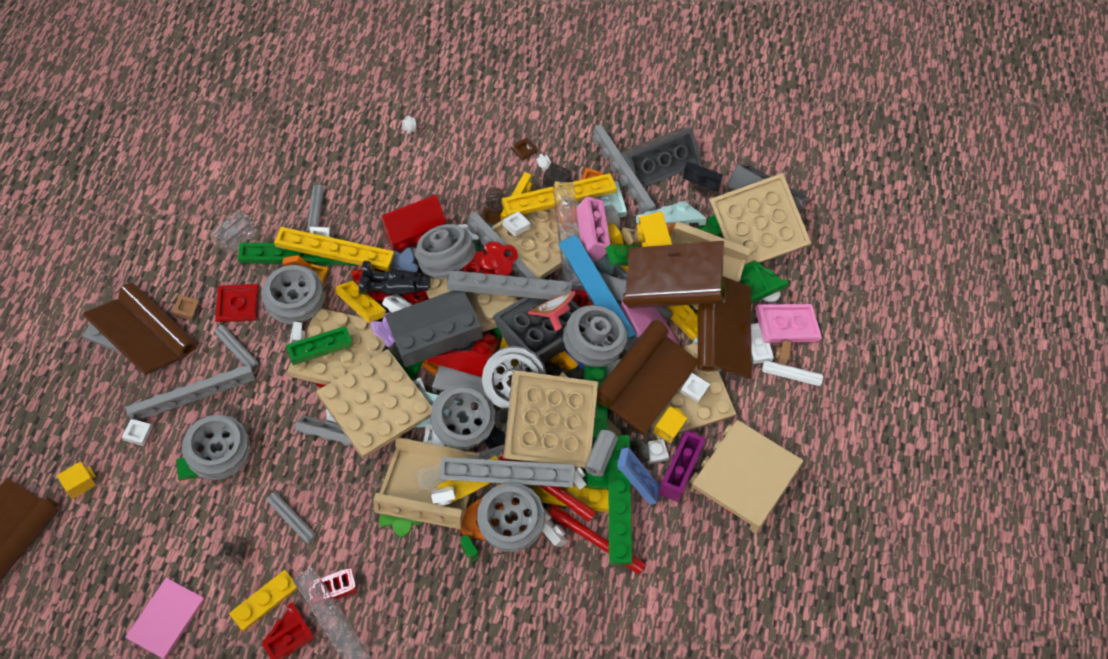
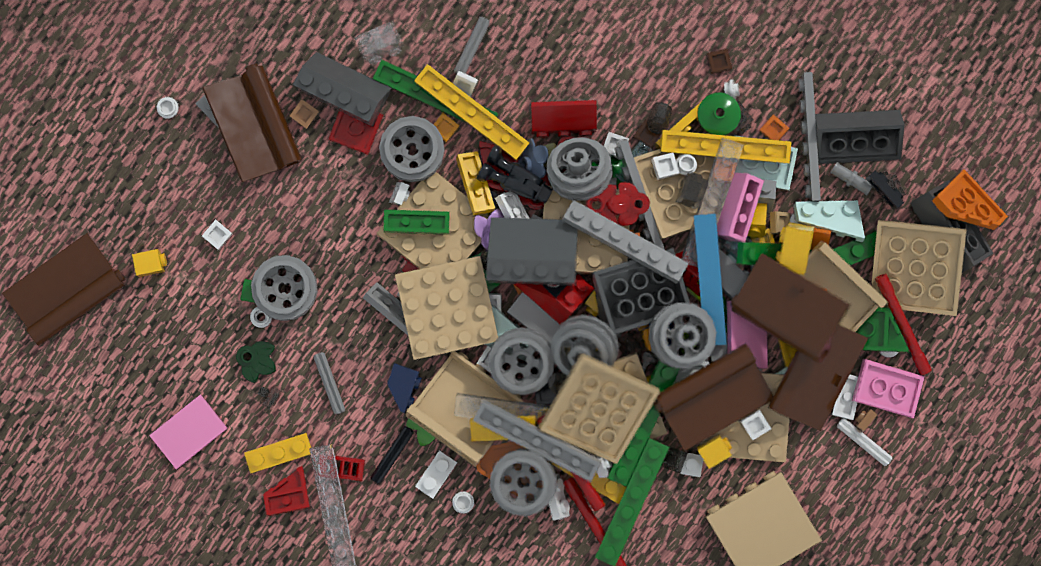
camera: 25 degrees right, 25 degrees up
(56, 349) = (167, 107): none -> white plate
(190, 393) = (270, 213): light grey plate -> none
(203, 492) = (260, 324): none -> white plate
(212, 277) = (342, 88): none -> dark grey slope
(215, 525) = (258, 363): none -> dark green plate
(236, 347) = (338, 179): light grey axle -> none
(295, 260) = (428, 111): orange tile -> none
(360, 488) = (402, 384): none -> dark blue slope
(376, 556) = (392, 454): none -> black axle
(426, 556) = (436, 474): none -> white plate
(443, 496) = (470, 435): white plate -> none
(462, 570) = (463, 502): none -> white plate
(469, 549) = (476, 486): green tile -> none
(534, 217) = (686, 164): none -> white plate
(535, 180) = (715, 124): none -> green dish
(547, 232) = (692, 190): none -> clear smoke brick
(554, 308) = (654, 289): shield -> none
(601, 453) = (632, 457): light grey axle -> none
(638, 476) = (658, 491): medium blue plate -> none
(671, 187) = (851, 178): none -> light grey pin
(682, 466) = (706, 494): magenta brick -> none
(763, 163) = (969, 203): none -> orange plate
(798, 290) = (889, 294): none -> red piece

